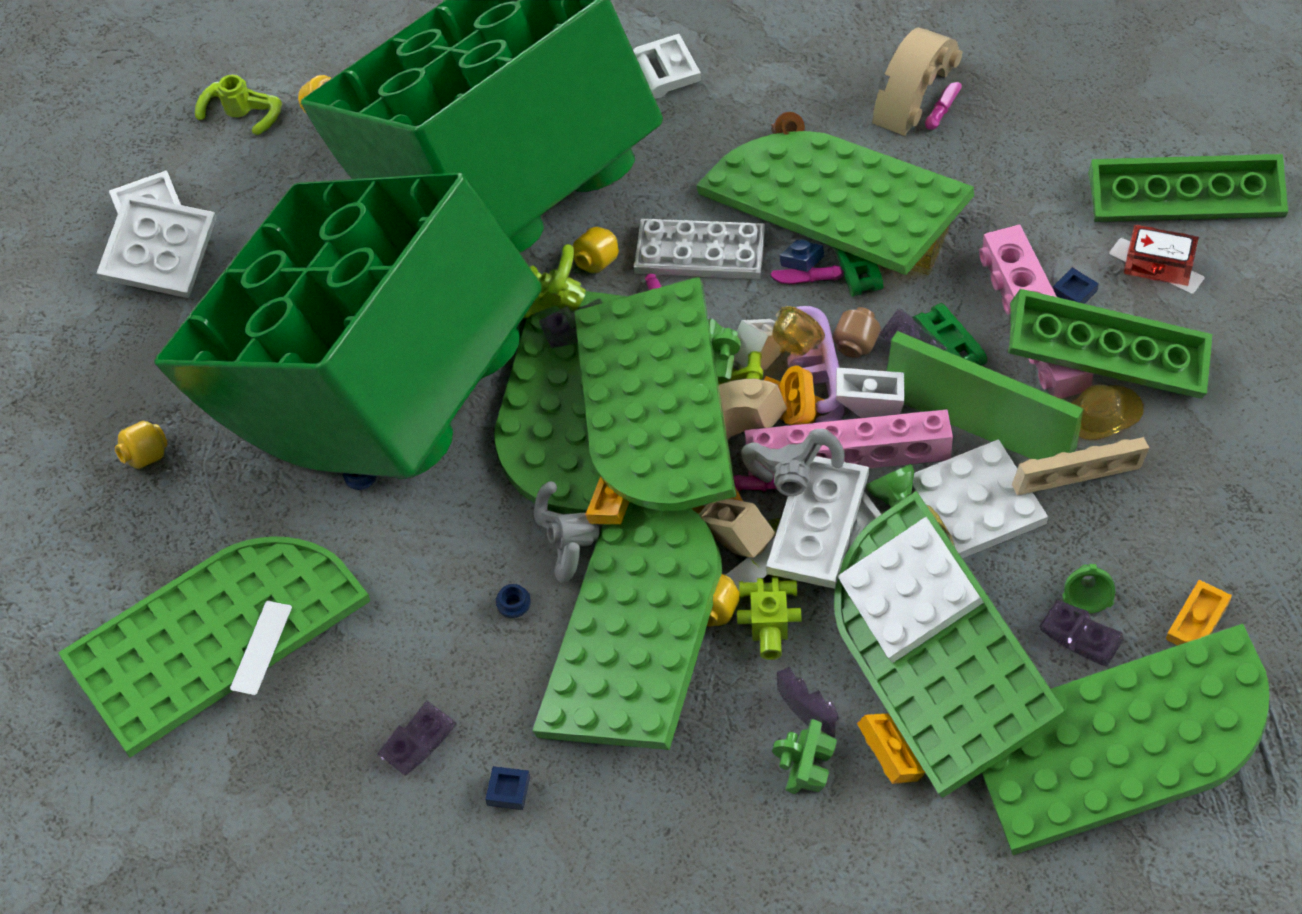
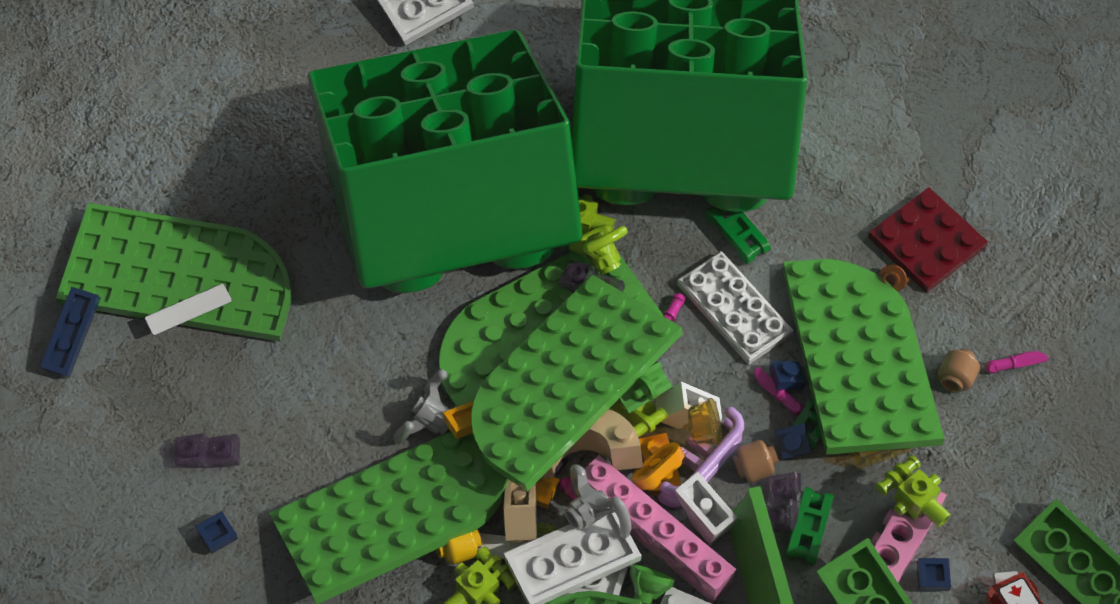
camera: 40 degrees right, 5 degrees up
(141, 444) = (270, 116): yellow head -> none
(176, 763) = (70, 332): none -> dark blue plate
(510, 593) = (349, 416): dark blue plate -> none
(595, 249) = (666, 245): yellow head -> none
(635, 194) = (737, 231): none -> green plate
(675, 62) = (875, 163): white plate -> none
(777, 81) = (927, 239): none -> dark red plate
(866, 292) = (794, 441): none -> dark blue plate
(910, 72) = (1012, 318): tan brick -> none
(914, 143) = (958, 370): none -> medium nougat head
(1001, 238) = (914, 492): none -> lime piece

